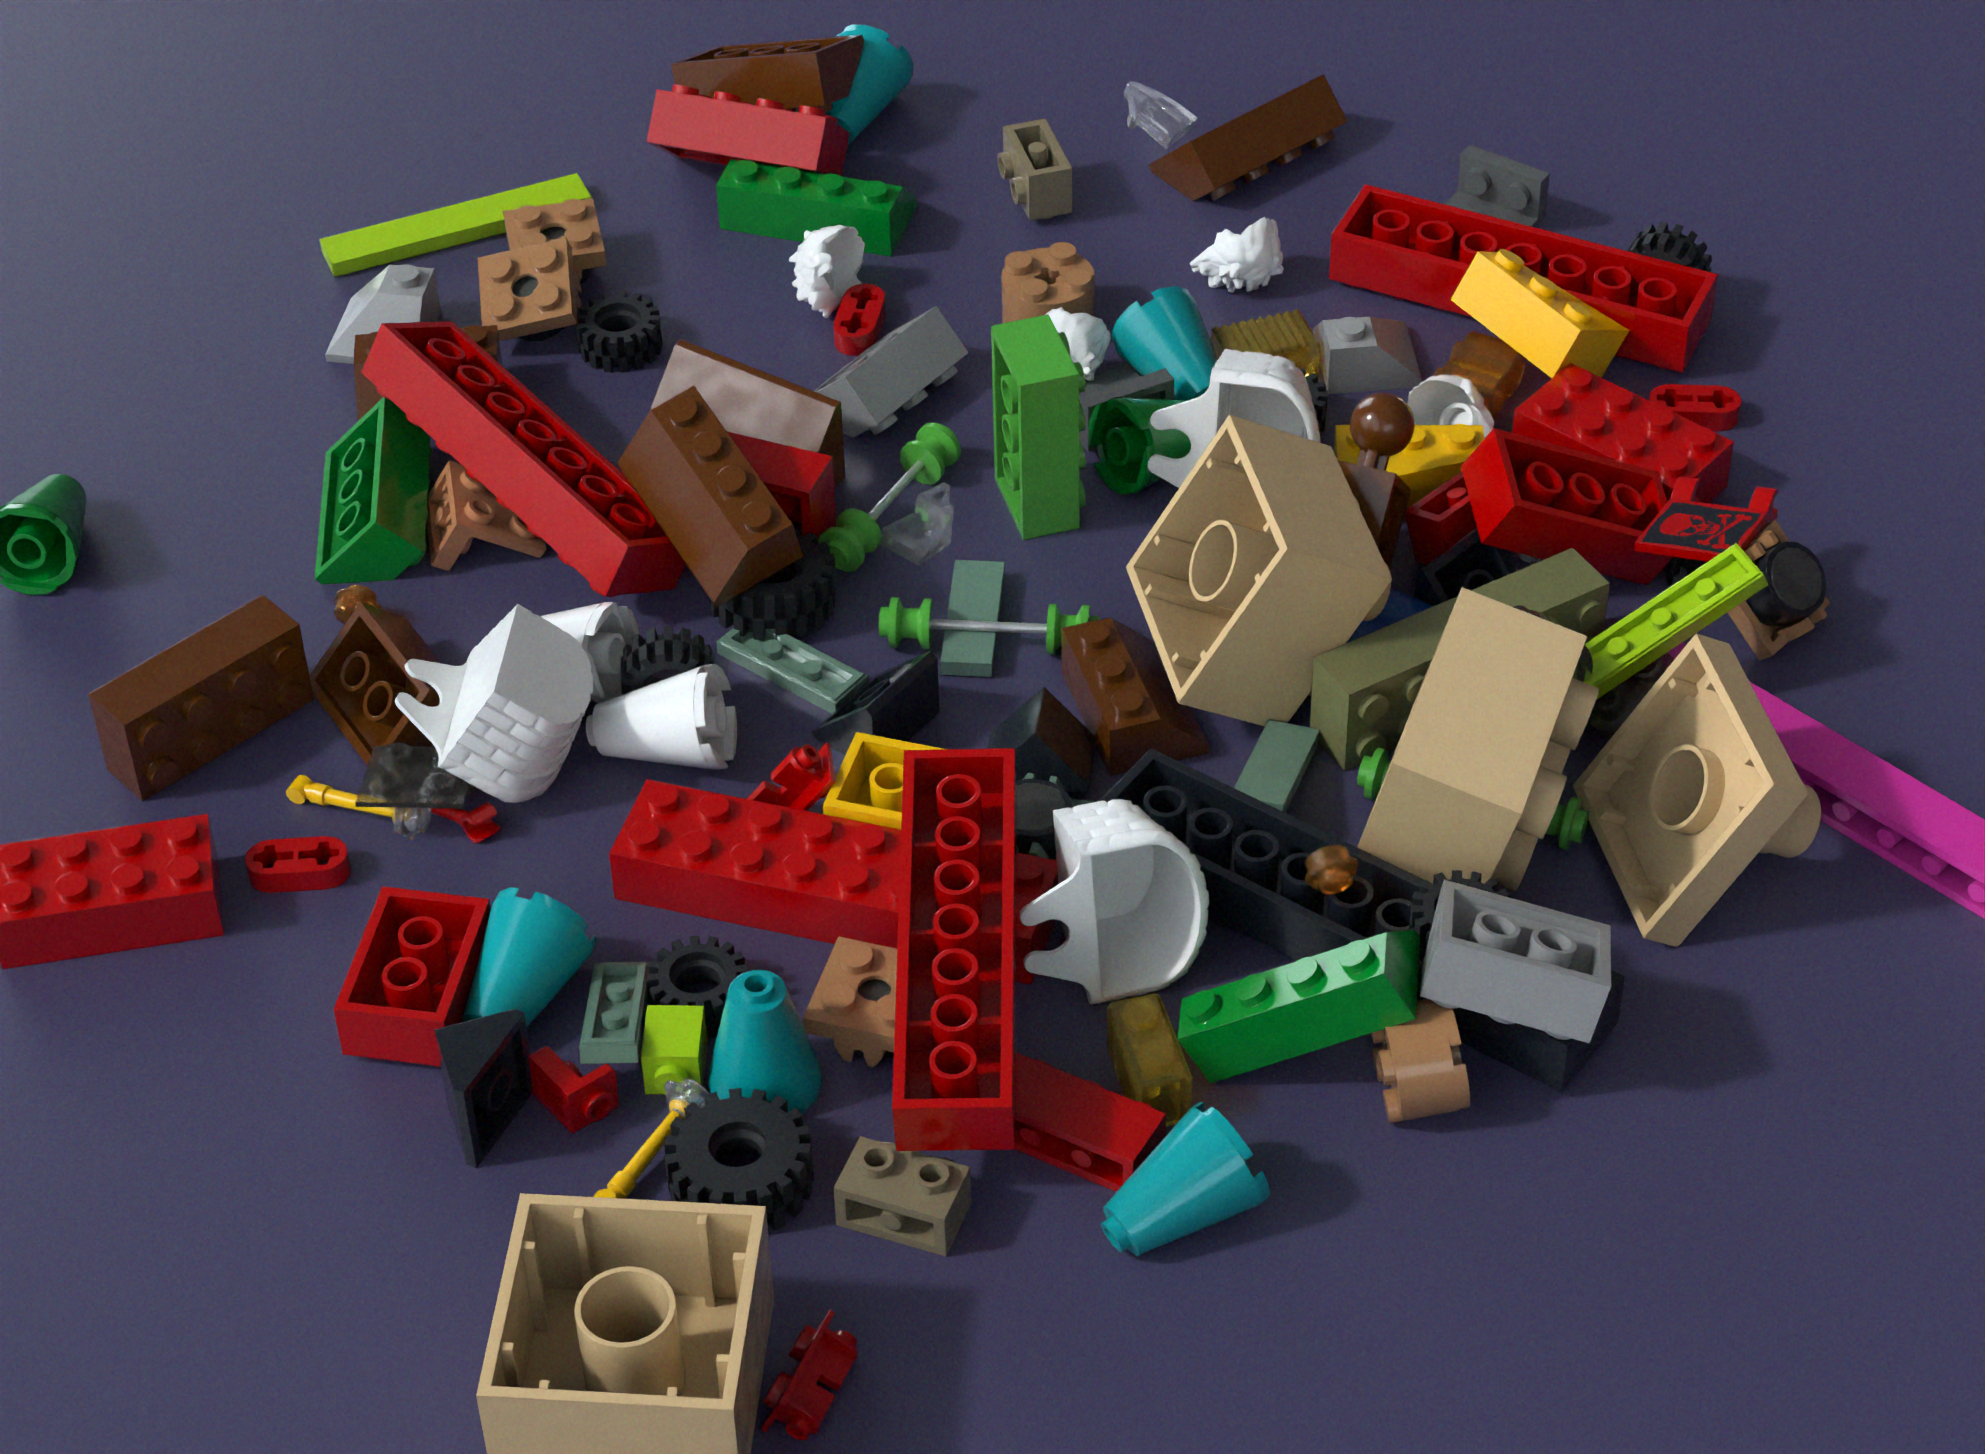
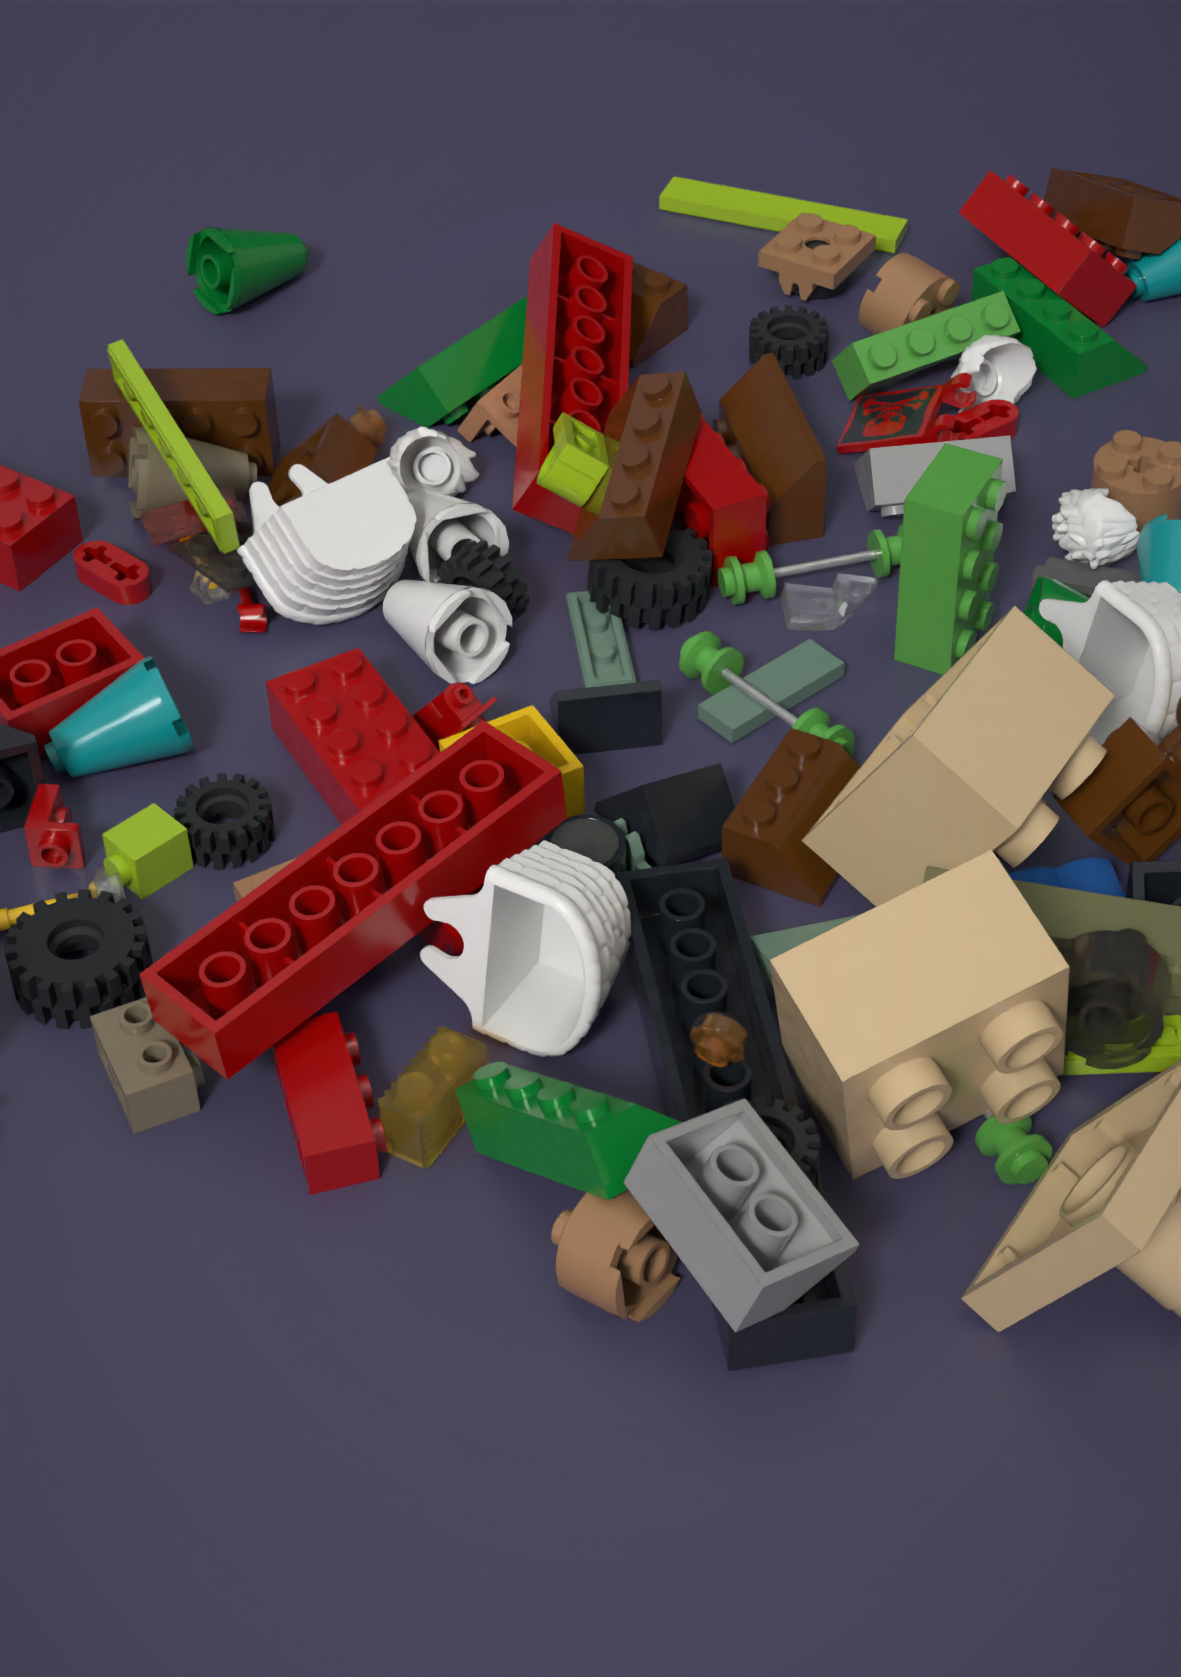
camera: 45 degrees right, 0 degrees up
(255, 745) = (157, 485): none -> dark tan cone
(285, 706) = (173, 447): none -> lime tile
(334, 770) = (181, 520): none -> clear red slope
(393, 296) = (661, 243): light grey slope -> none
(469, 605) = (431, 462): none -> white hair
(530, 291) = (746, 277): medium nougat piece -> none
(615, 1013) = (114, 802): sand green tile -> none
(655, 519) = (575, 461): none -> lime plate
(696, 244) = (906, 294): none -> medium nougat brick
(743, 287) = (907, 349): none -> bright green arch
(764, 1044) = (180, 879): teal cone -> none
(800, 340) = (905, 416): none -> red flag
(1184, 1185) = (328, 1206): teal cone -> none

